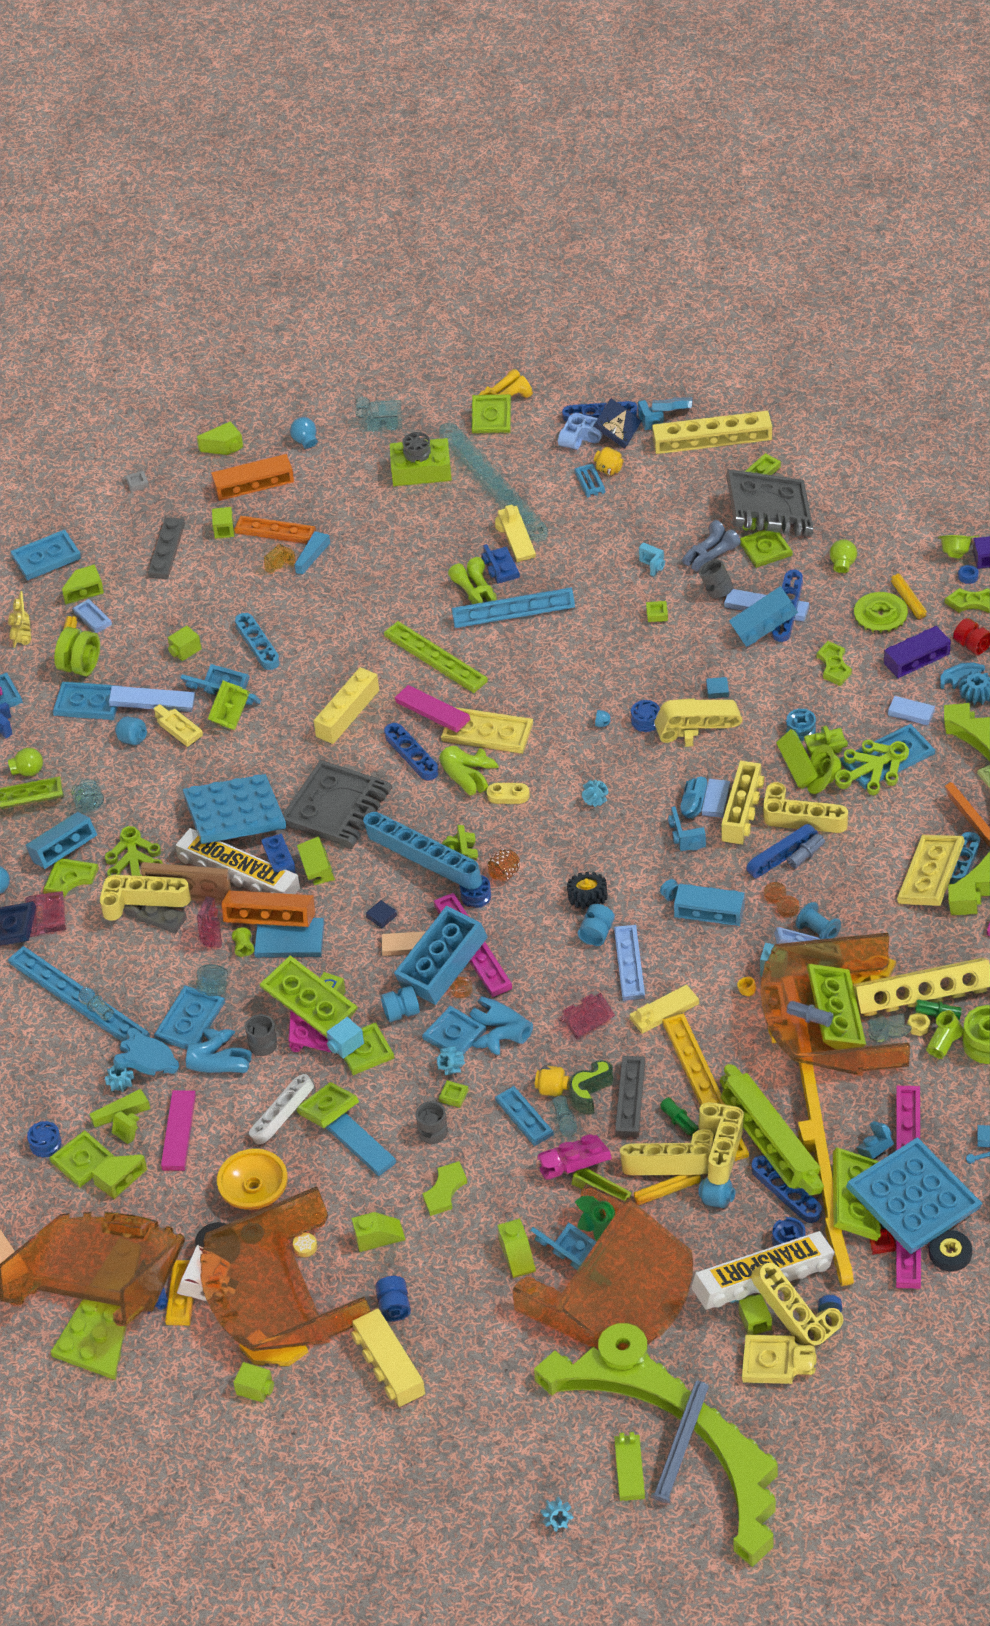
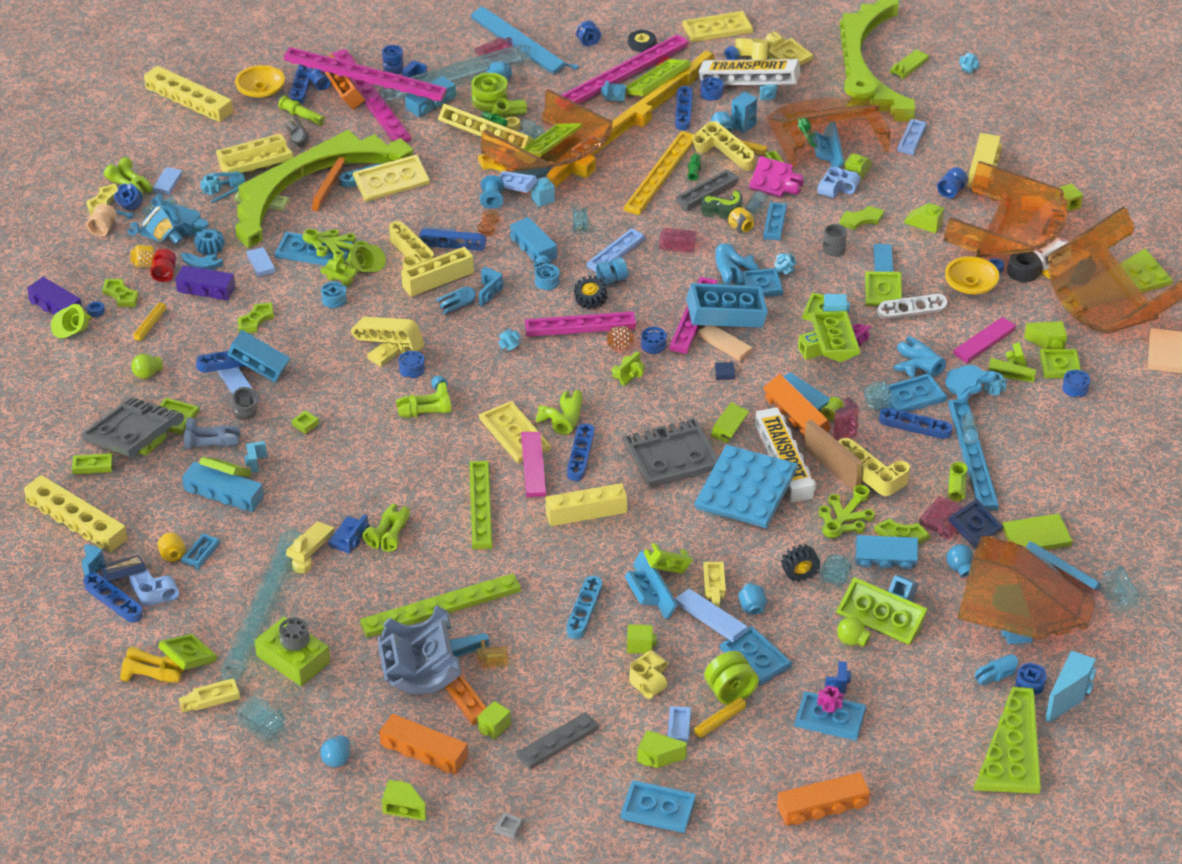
camera: 140 degrees left, 5 degrees down
(16, 818) = (903, 587): none -> dark azure brick
(19, 622) = (745, 748): light yellow hinge -> none
(62, 951) = (957, 481): none -> lime piece
(119, 776) = (800, 563): none -> black wheel
(151, 623) = (646, 674): none -> light yellow piece
(155, 985) = (915, 422): none -> blue beam
(261, 1035) = (882, 344): dark grey wheel -> none
(278, 853) = (752, 432): blue bracket -> none
(327, 510) = (419, 656): none -> sand blue piece
(364, 570) = (449, 601): none -> lime plate
(400, 1003) = (785, 308): dark azure wheel -> none
(423, 850) = (660, 372): dark azure beam -> none
(437, 407) = (210, 695): none -> light yellow hinge
(453, 1094) = (801, 255): lime tile -> none
(508, 793) = (555, 383): light yellow plate -> none
(509, 1349) = (912, 137): none -> light blue tile
(513, 607) = (388, 492): dark azure tile -> none
(515, 1205) = (838, 180): none -> light blue piece
(558, 858) = (578, 323): none -> dark pink plate
(583, 706) = (434, 403): none -> lime piece
(639, 522) = (223, 487): none -> dark azure brick
(654, 876) = (547, 277): none -> dark azure wheel
(655, 527) = (224, 466): none -> lime tile
(665, 1007) = (644, 218): light yellow hinge -> none
(672, 404) = (57, 553): dark azure tile -> none
(680, 1442) = (879, 44): sand blue axle -> none
(696, 957) = (580, 219): none -> clear light blue wheel
(702, 1209) = (744, 112): none -> dark azure brick
(716, 798) = (430, 298): light blue tile -> none
(717, 687) = (342, 353): dark azure tile -> none
(727, 1126) = (682, 131): light yellow beam -> none
(746, 986) = (572, 194): yellow hinge -> none
(771, 1132) = (660, 125): lime hinge -> none
(797, 759) = (367, 278): lime tile -> none
(810, 1013) = (574, 130): sand blue axle -> none
(893, 608) = (191, 319): lime gear -> none
(903, 1347) = (717, 26): none -> light yellow tile
(914, 1195) = (632, 55): dark azure plate -> none

